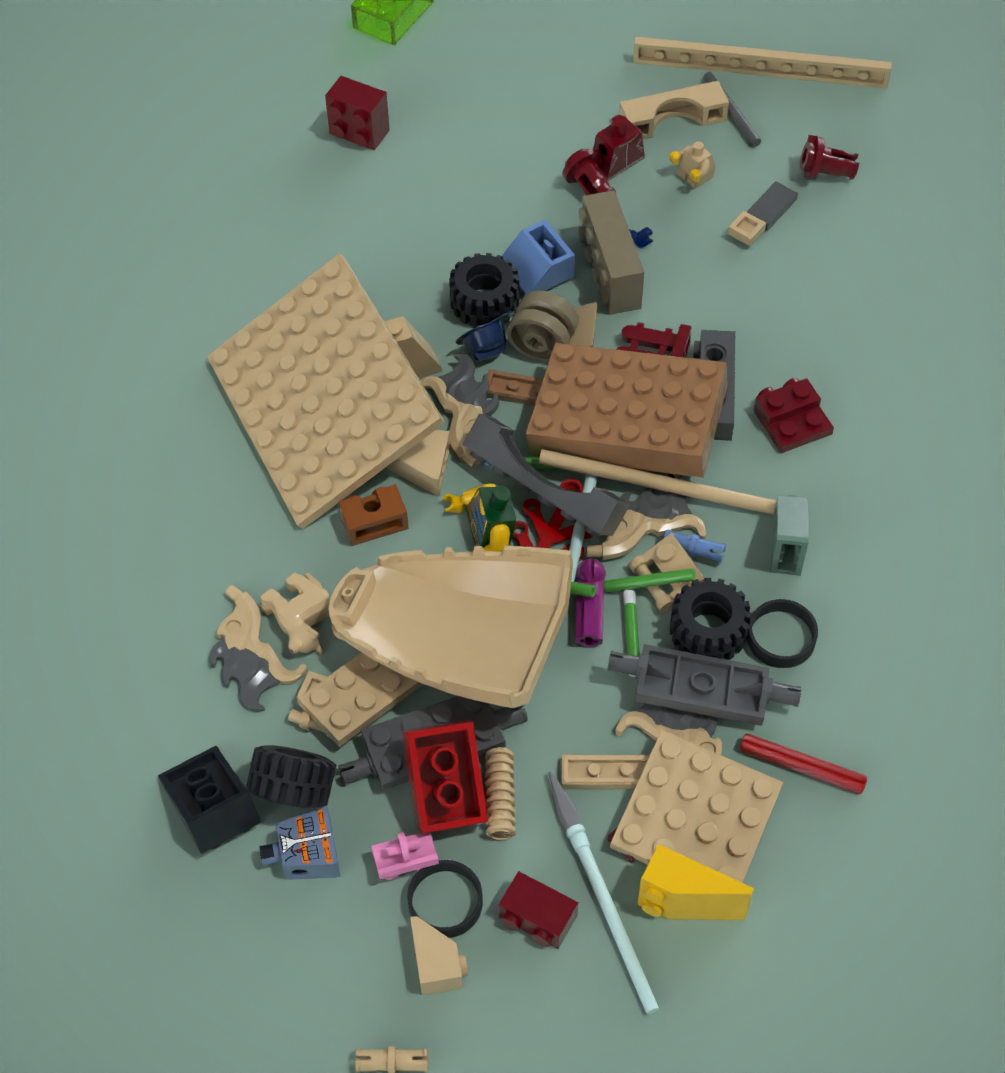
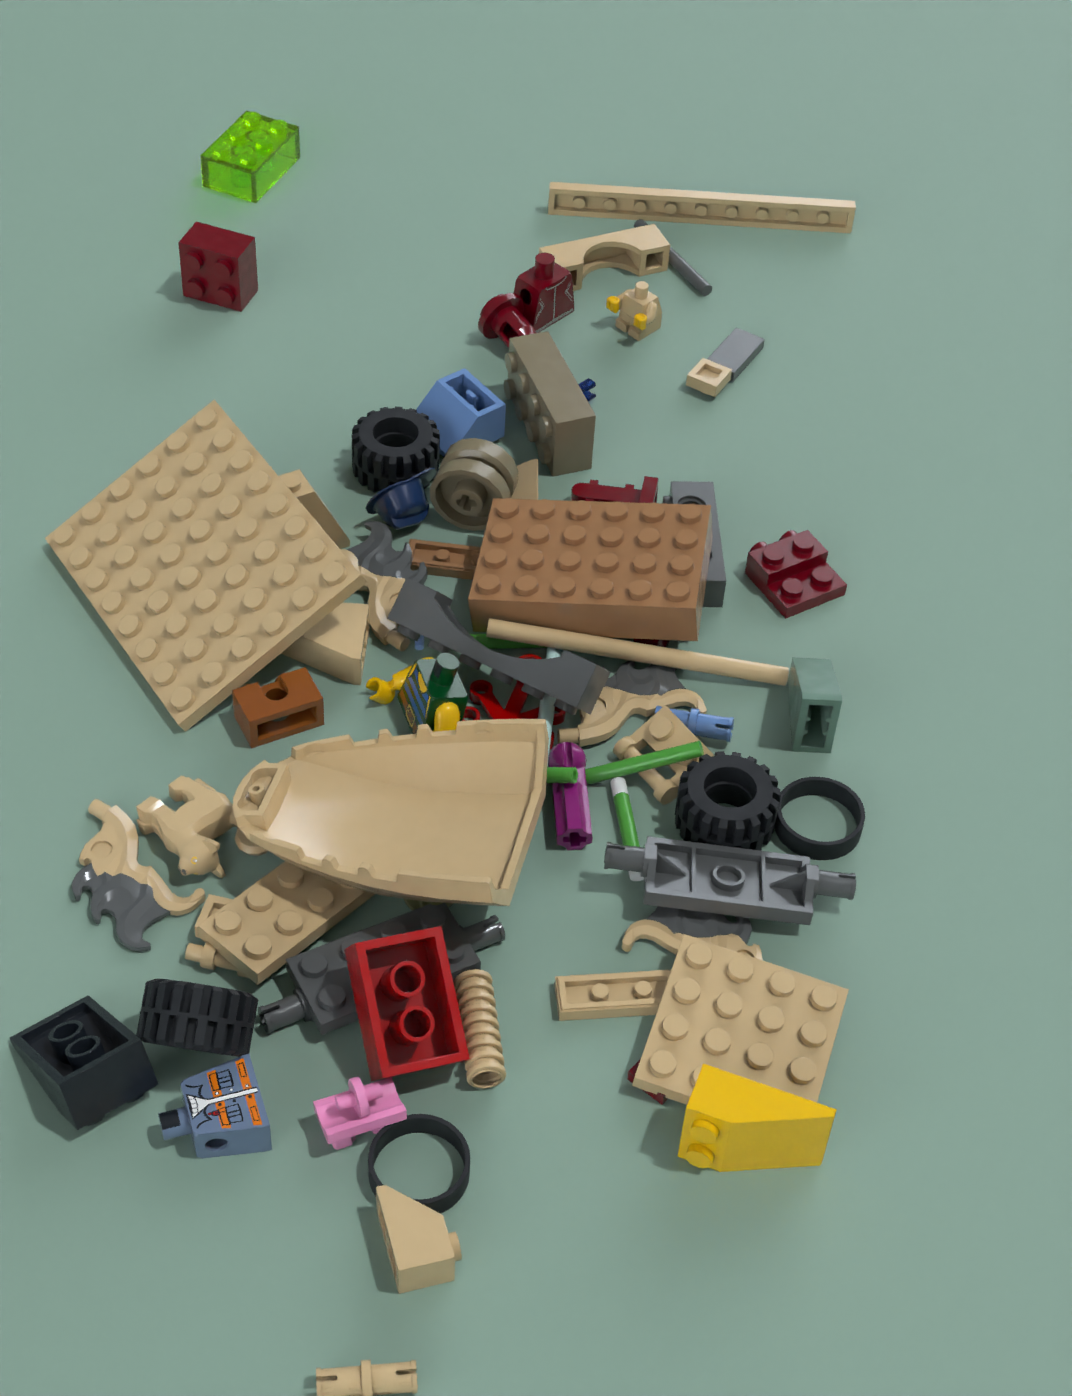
camera: 10 degrees left, 10 degrees down
(537, 910) = (547, 1169): dark red brick -> none
(575, 831) = (574, 1054): light aqua piece -> none
(803, 763) = (869, 968): red axle -> none
(826, 160) = (786, 301): dark red piece -> none

